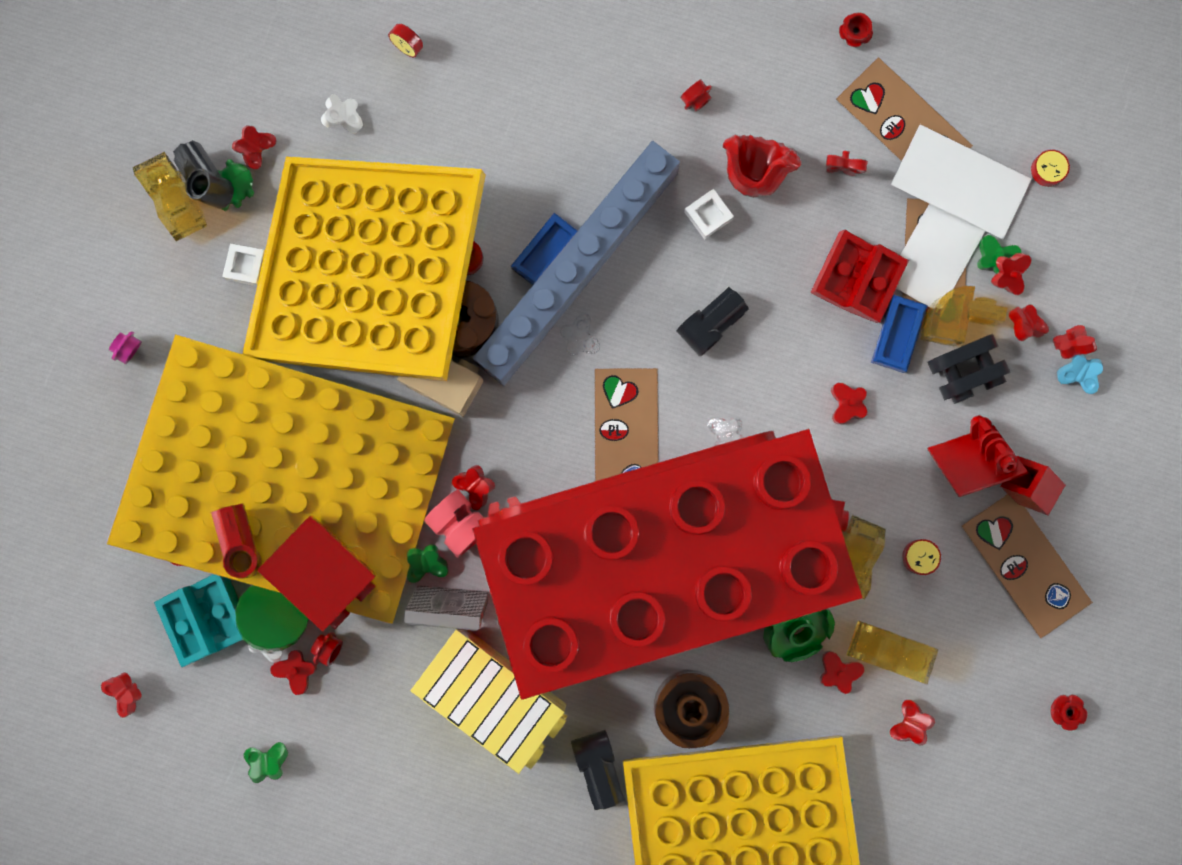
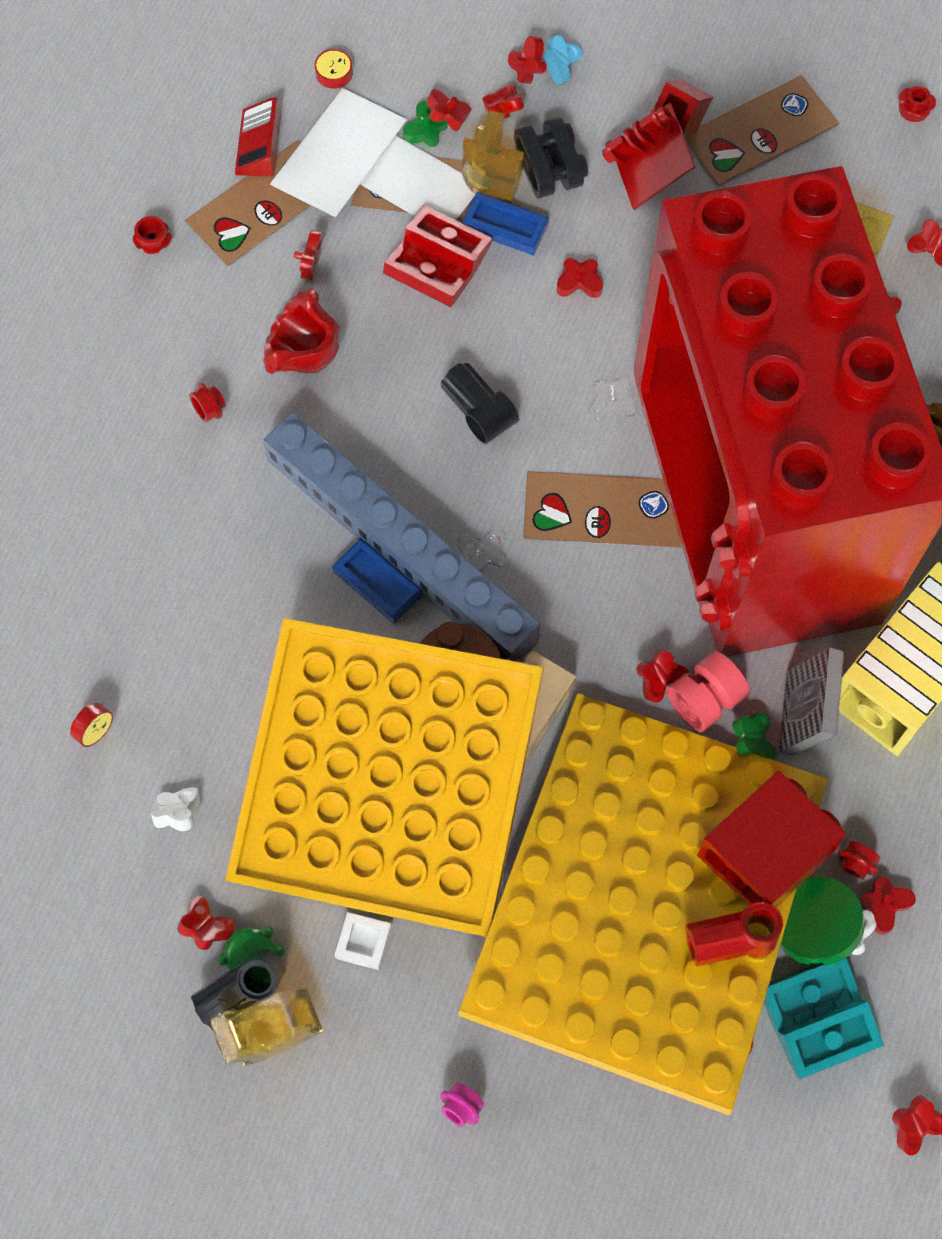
camera: 90 degrees left, 15 degrees down
(708, 214) = (351, 398): white plate -> none
(965, 109) = (258, 139): none -> slope

